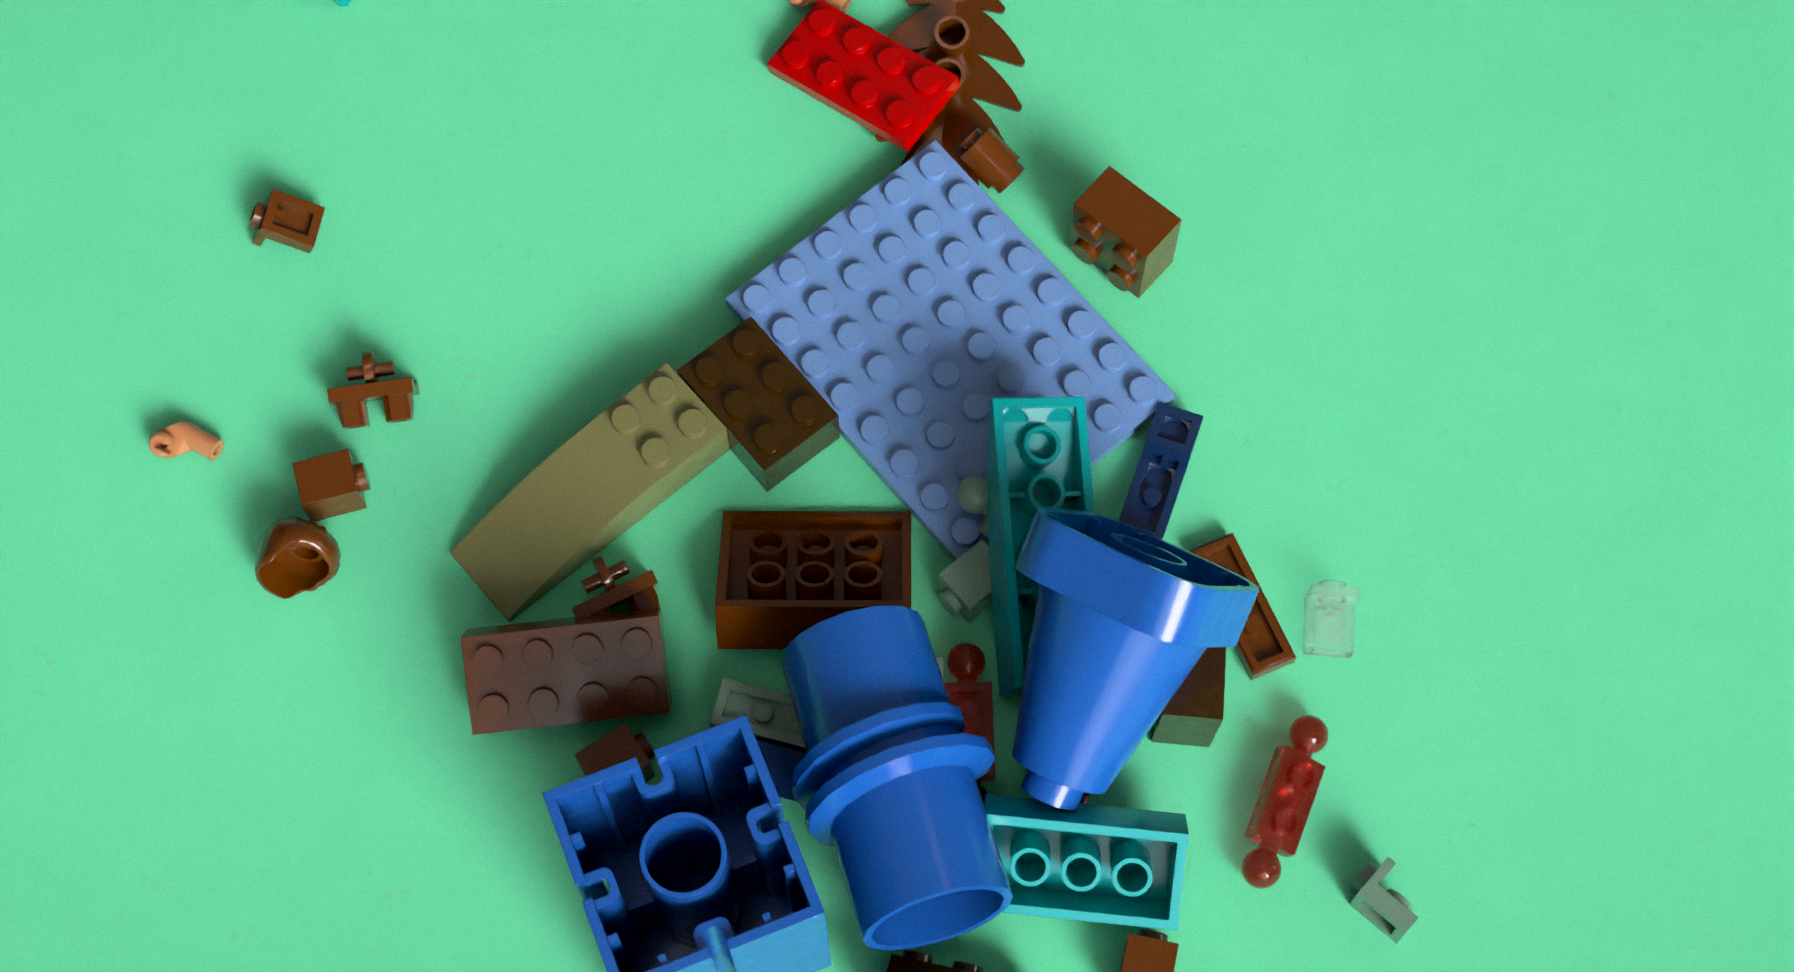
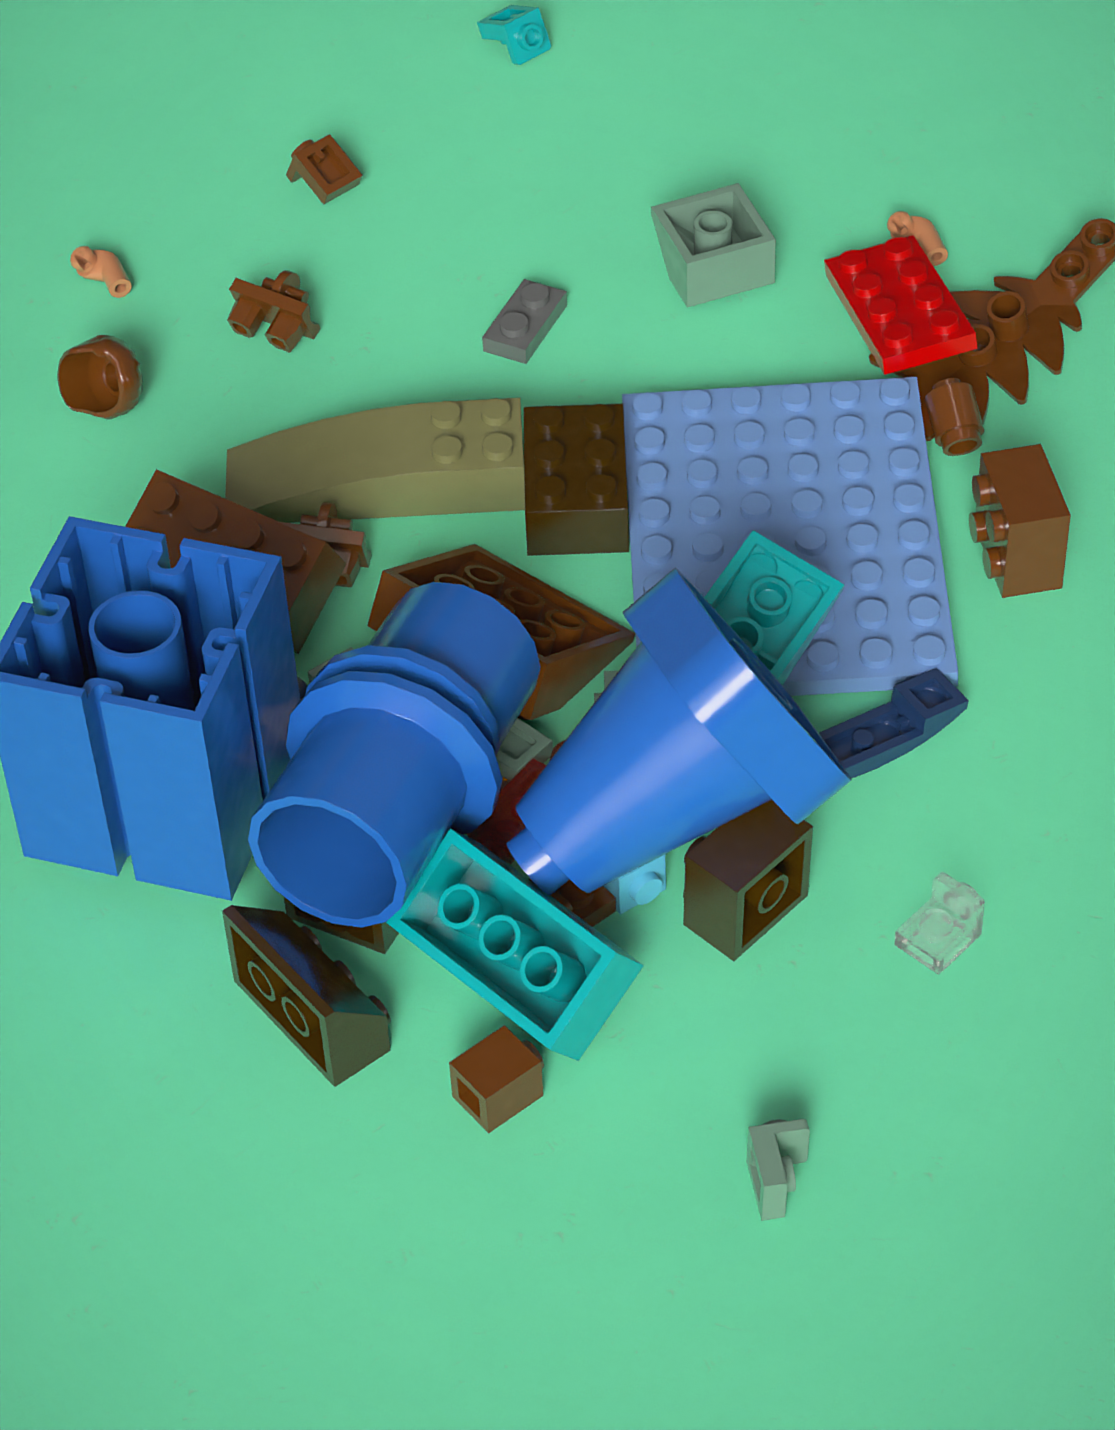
camera: 40 degrees right, 20 degrees down
(331, 485) = (178, 350): reddish brown brick -> none
(579, 269) = (524, 321): none -> dark grey plate
(681, 106) = (714, 245): none -> sand green slope
(1262, 641) = (868, 871): reddish brown tile -> none
(1284, 801) = (758, 1034): clear red plate -> none

